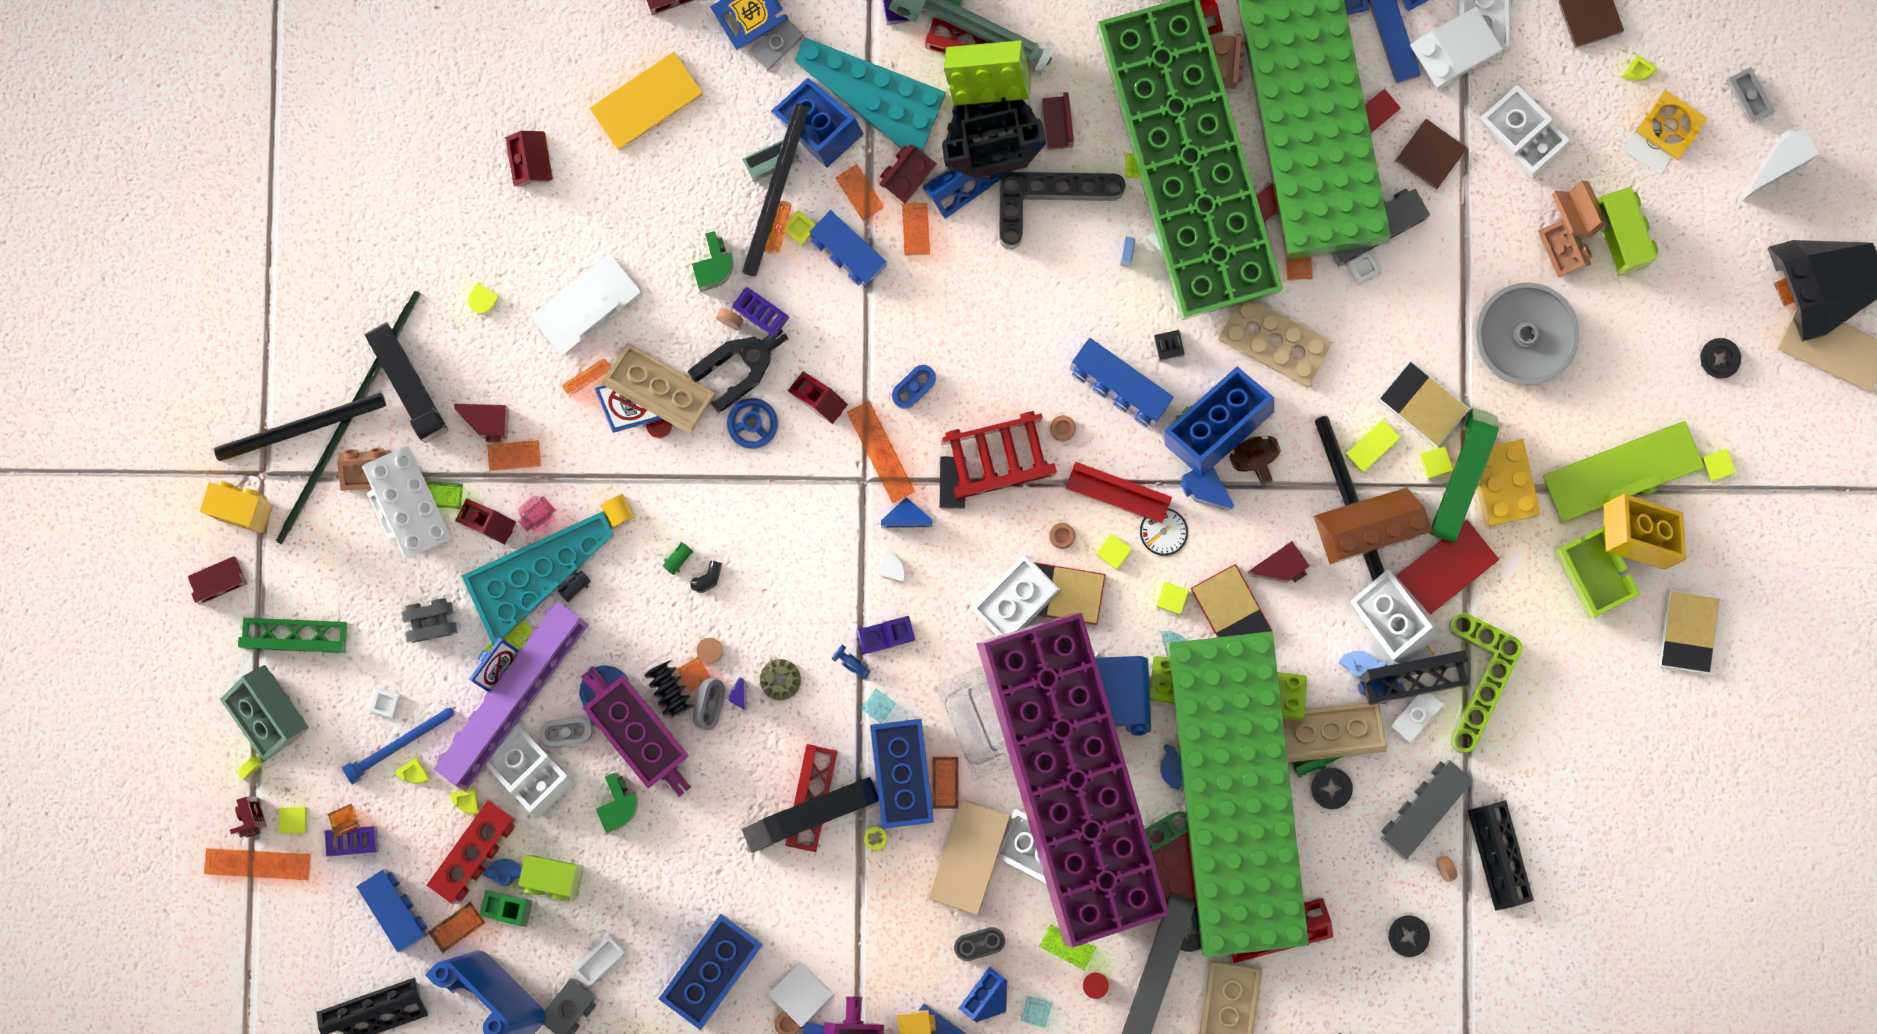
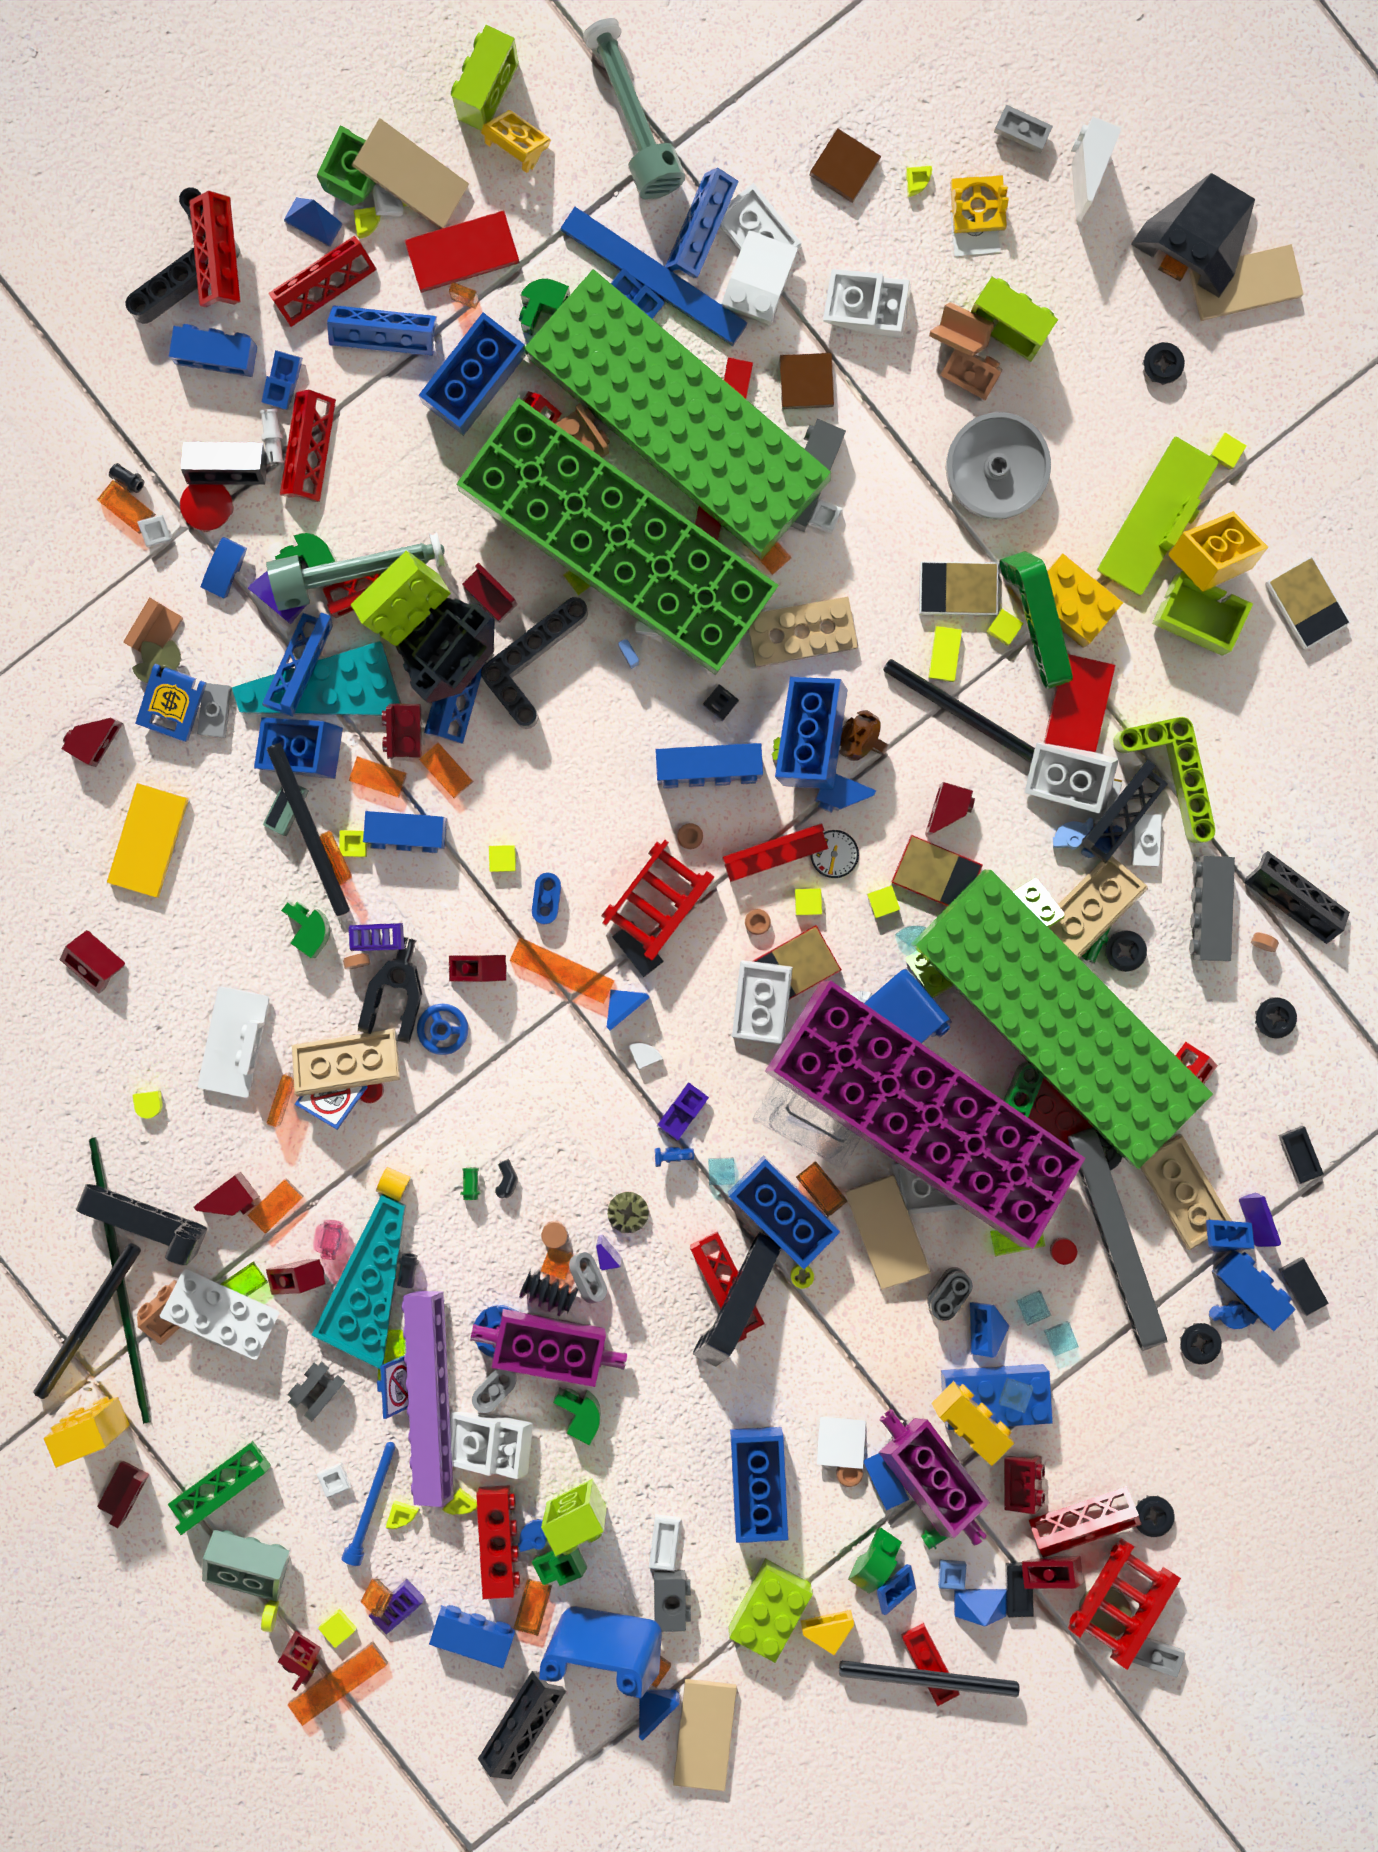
camera: 35 degrees left, 5 degrees up
(872, 64) = (304, 665): none -> blue fence
(904, 329) = (502, 858): none -> neon yellow tile
(1170, 767) = (988, 1035): blue piece -> none
(1372, 525) = (996, 718): dark orange slope -> none

